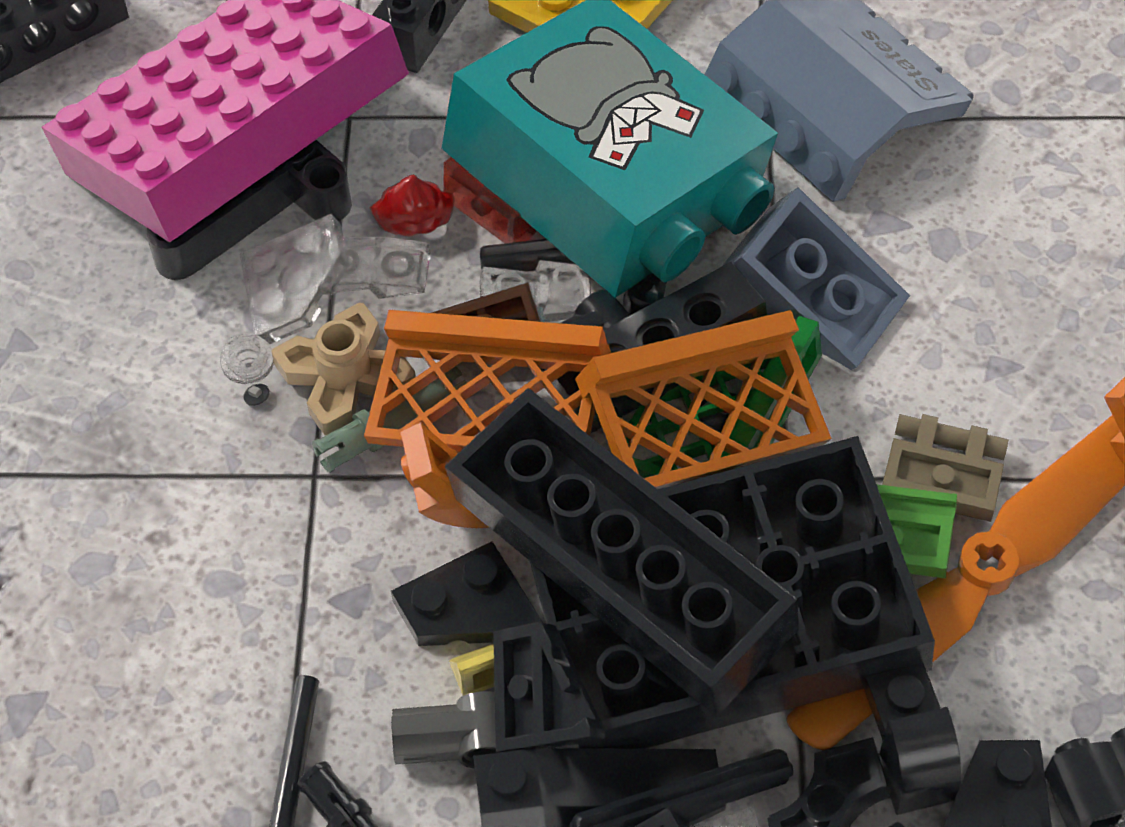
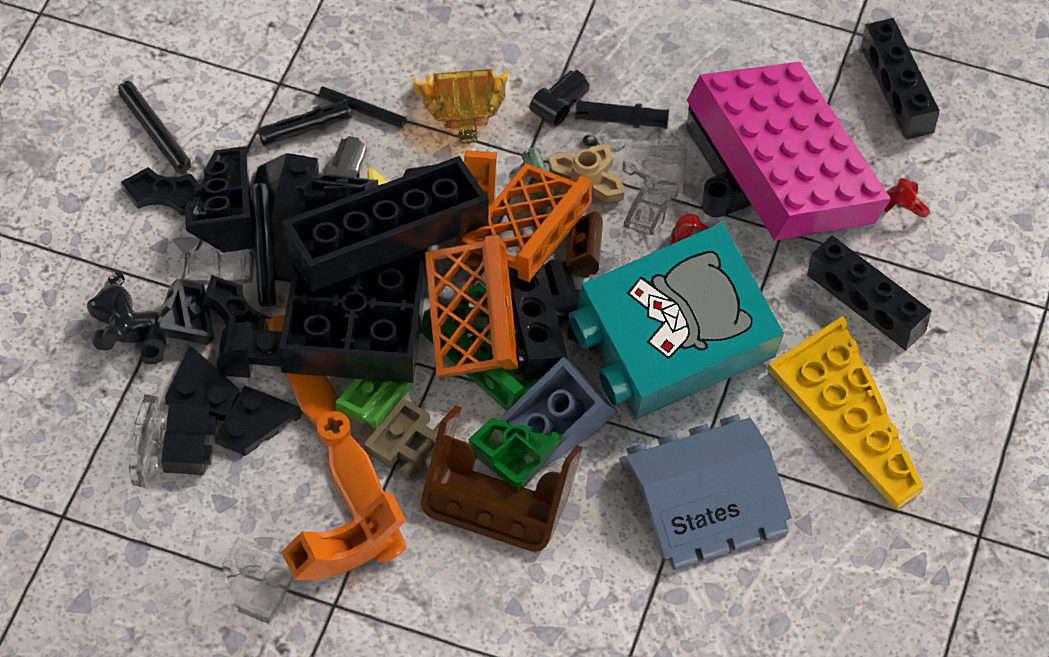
camera: 105 degrees right, 0 degrees up
(193, 337) = (622, 114): none -> black pin
(200, 454) = (555, 103): none -> black piece
(244, 584) = (463, 99): none -> clear yellow torso
(899, 313) = (512, 450): none -> green slope
(990, 298) = (488, 504): none -> reddish brown windscreen
(1018, 697) = (254, 420): none -> black wing

